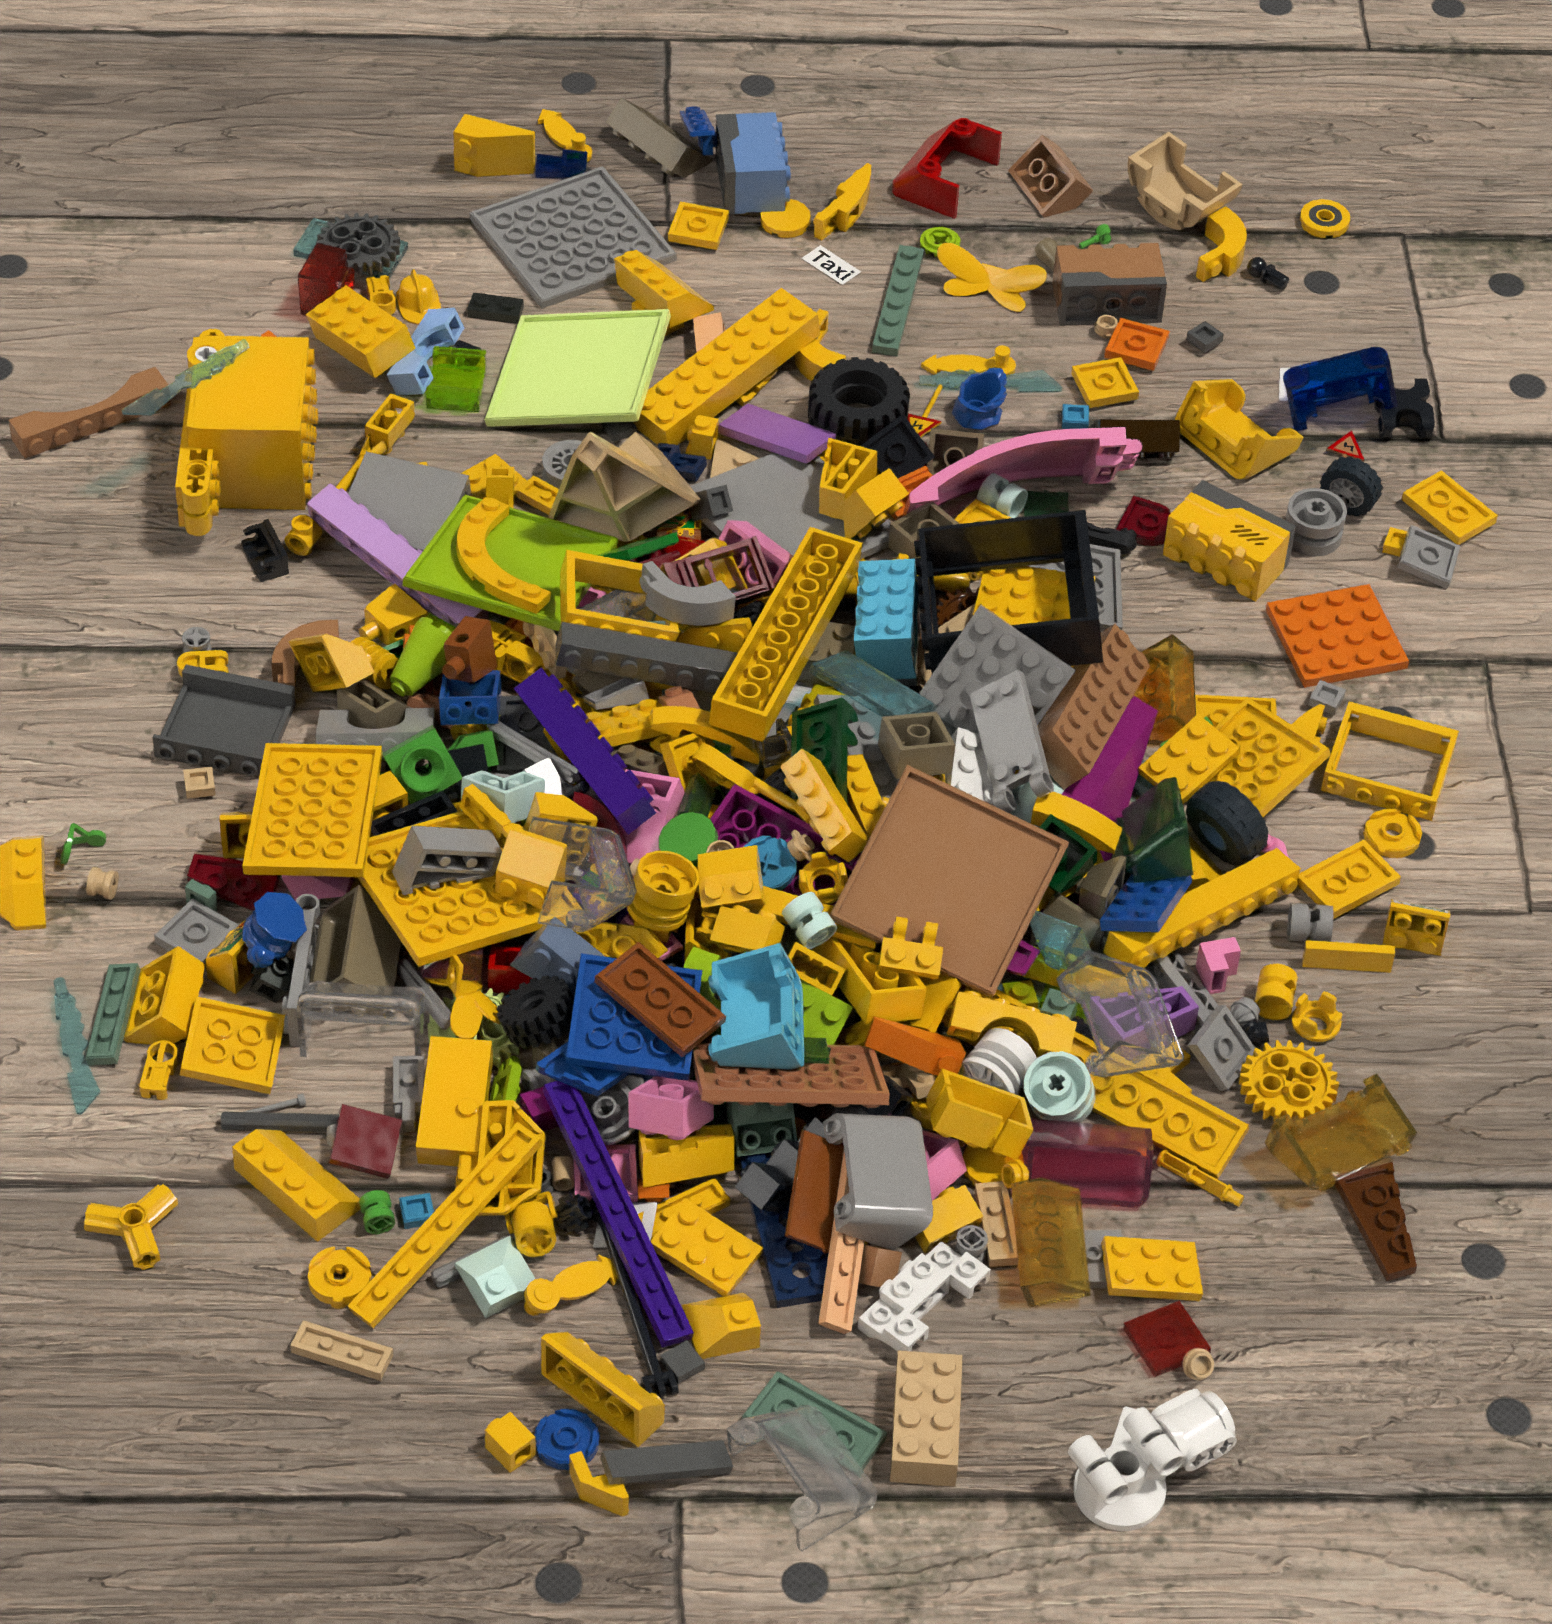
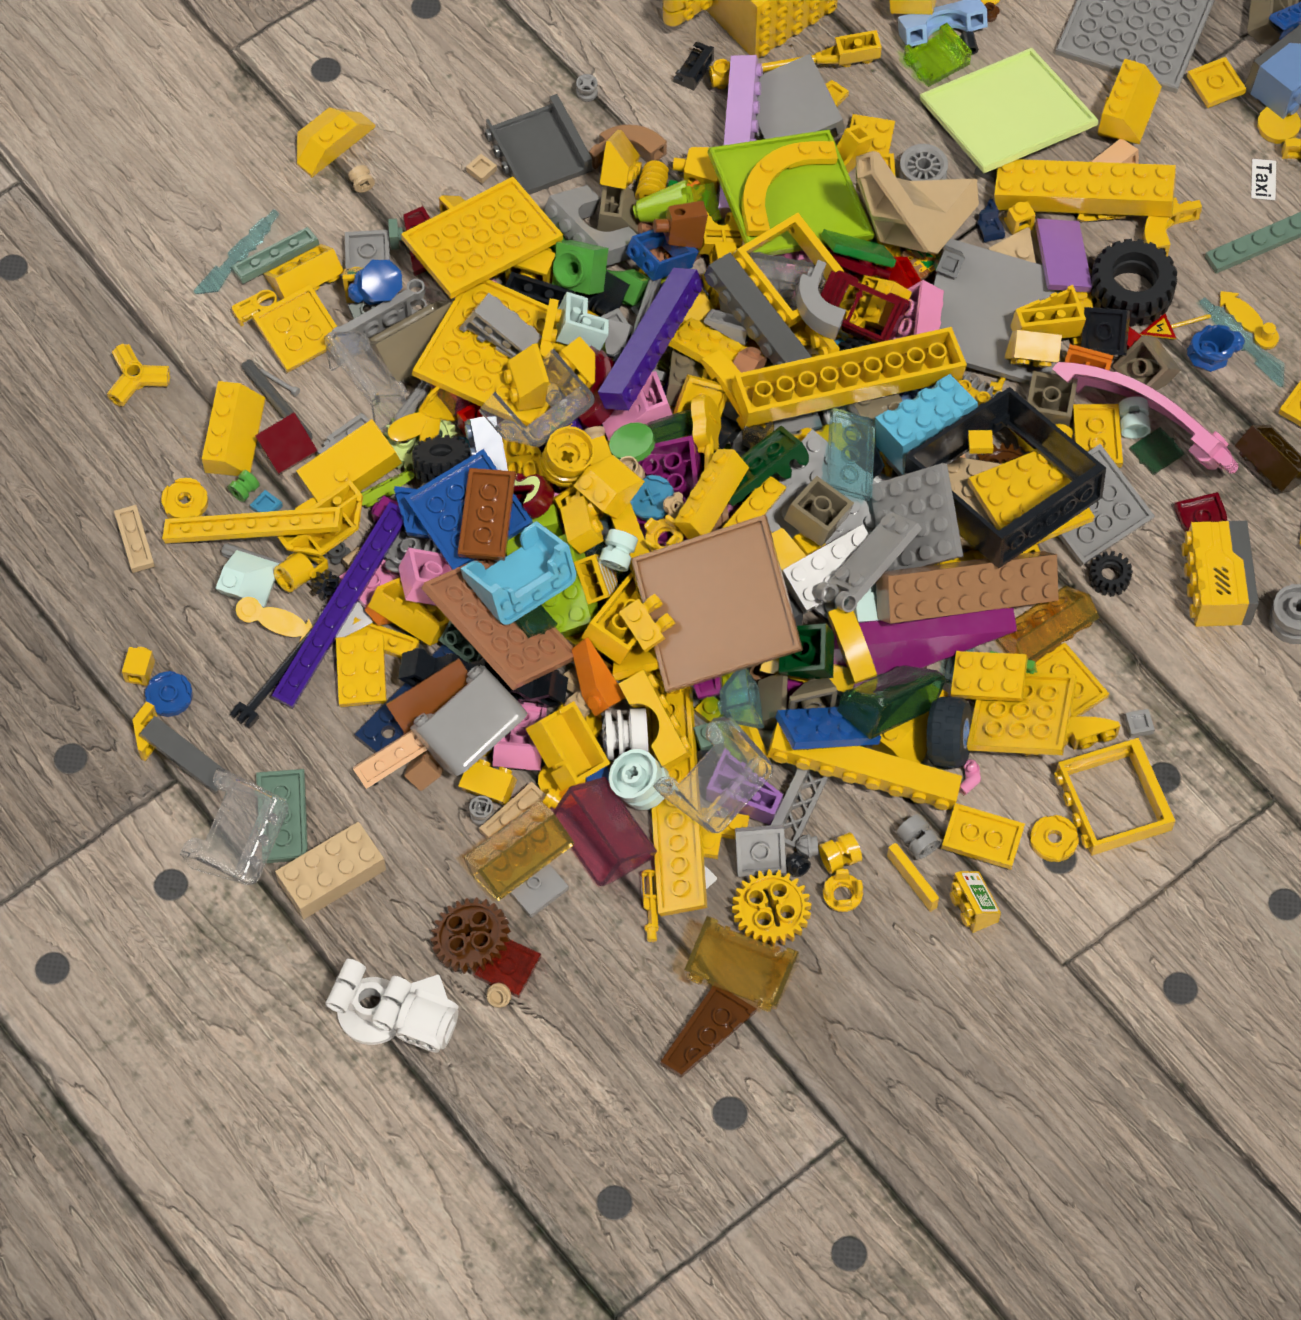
camera: 55 degrees right, 15 degrees up
(94, 838) = (392, 148): bright green piece -> none
(217, 658) = (572, 97): yellow plate -> none
(495, 308) = (1026, 29): pearl dark grey plate -> none
(601, 1387) = (212, 684): yellow slope -> none
(670, 943) = (535, 493): none -> dark red animal
(683, 1361) = (271, 715): dark grey tile -> none
(723, 1325) = (315, 717): yellow slope -> none
(916, 1291) = (420, 803): white bracket -> none
(967, 578) = (980, 441): none -> yellow tile
(1075, 416) = (1261, 411): dark azure tile -> none
(1123, 540) = (1148, 479): black piece -> none
(1135, 1353) = (470, 935): none -> reddish brown gear
(1151, 1268) = (551, 922): yellow plate -> none
(1152, 607) = (1114, 562): none -> black tyre
(1216, 962) = (833, 801): bright pink piece -> none
(1337, 635) = (1207, 694): orange plate -> none

